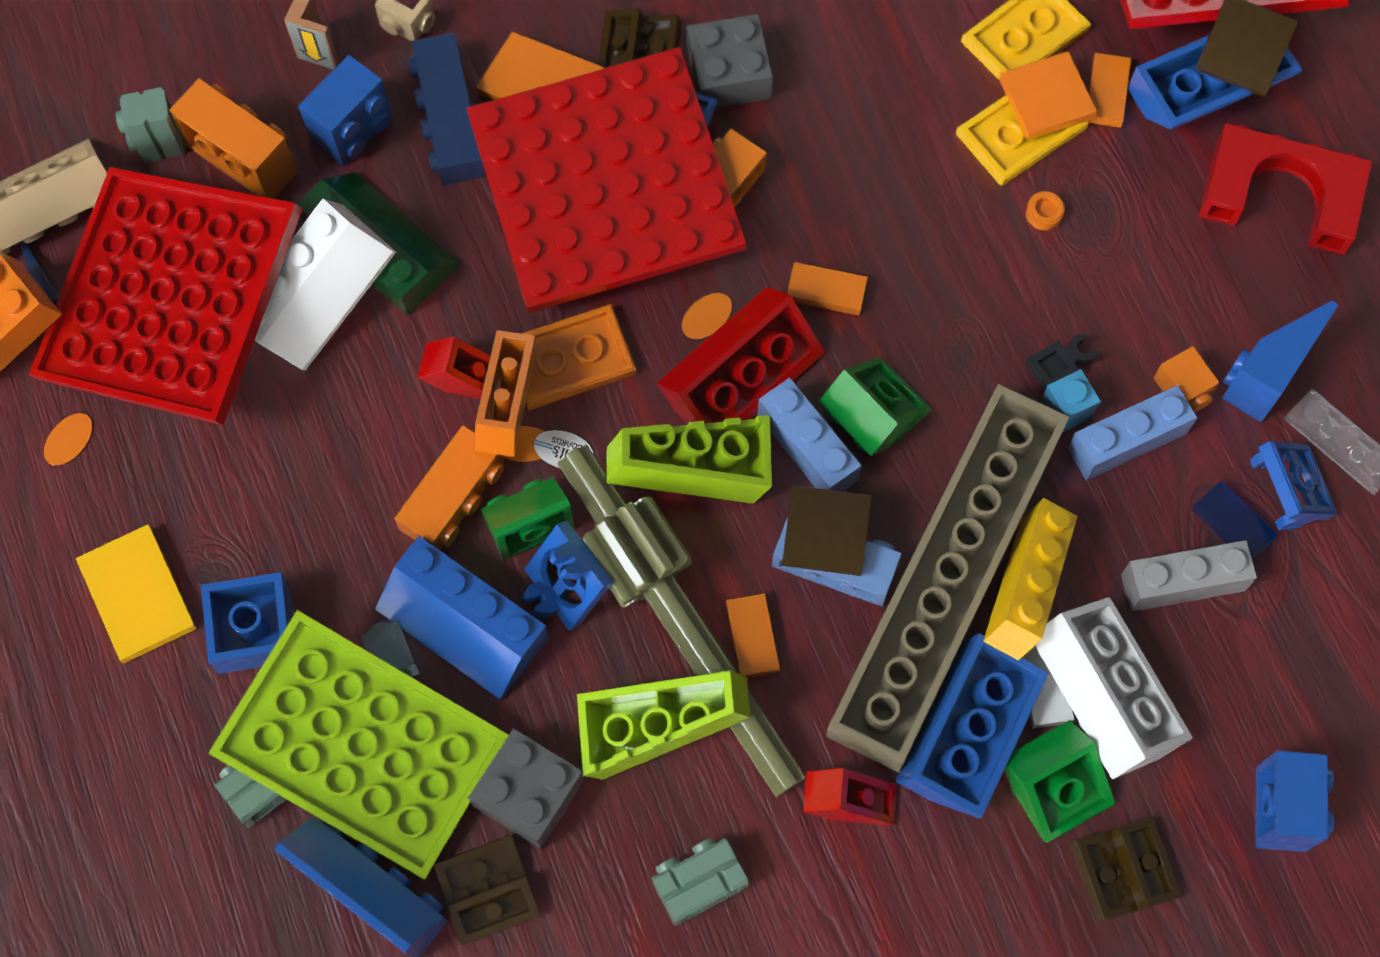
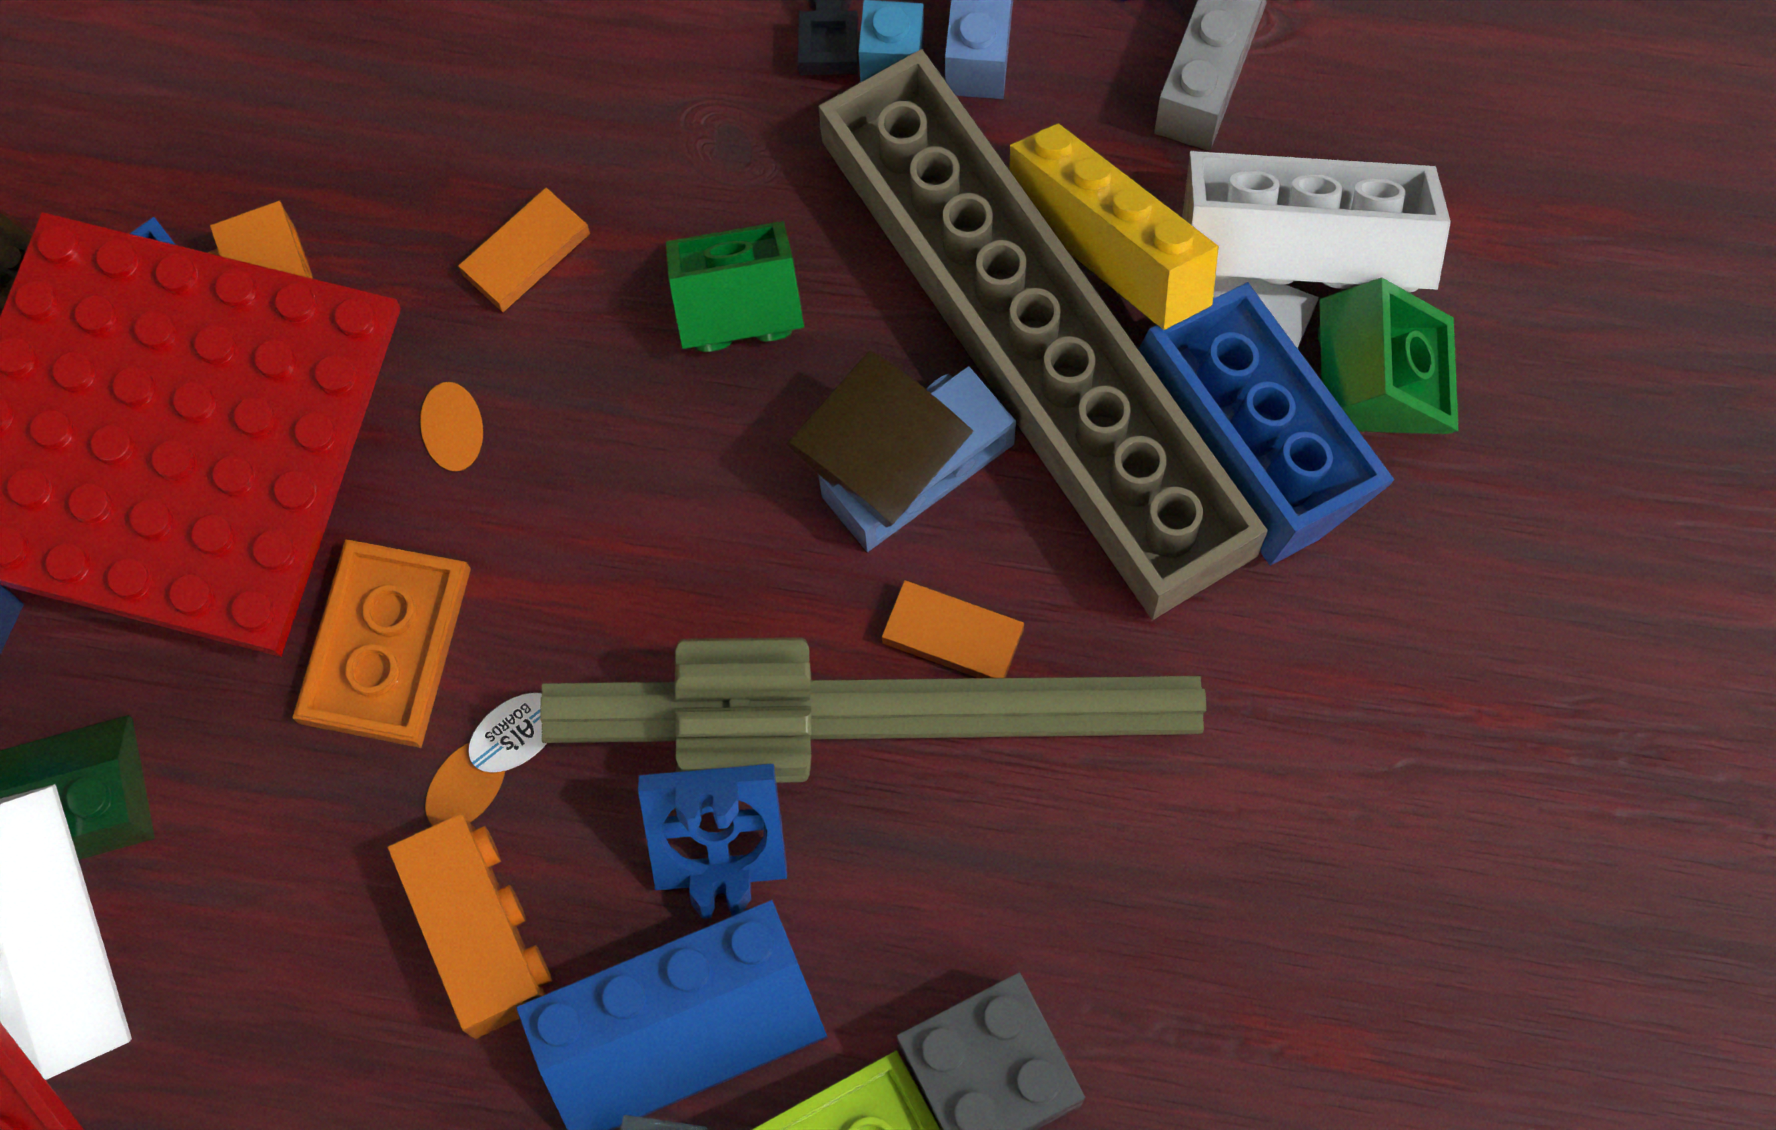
camera: 55 degrees left, 0 degrees up
(454, 367) = (300, 800): red slope -> none
(505, 393) = (387, 753): orange brick -> none
(526, 517) = (585, 834): green slope -> none
(651, 719) = (1001, 835): lime wedge -> none
(695, 459) = (663, 549): lime wedge -> none
(699, 880) = (1262, 905): sand green brick -> none
(730, 60) = (107, 167): dark grey brick -> none
(743, 361) = (560, 419): red slope -> none
(808, 438) = (724, 393): medium blue brick -> none
(849, 797) = (1258, 637): red slope -> none
(1125, 870) = (1549, 357): dark brown slope -> none
(1293, 801) = (1584, 102): blue brick -> none

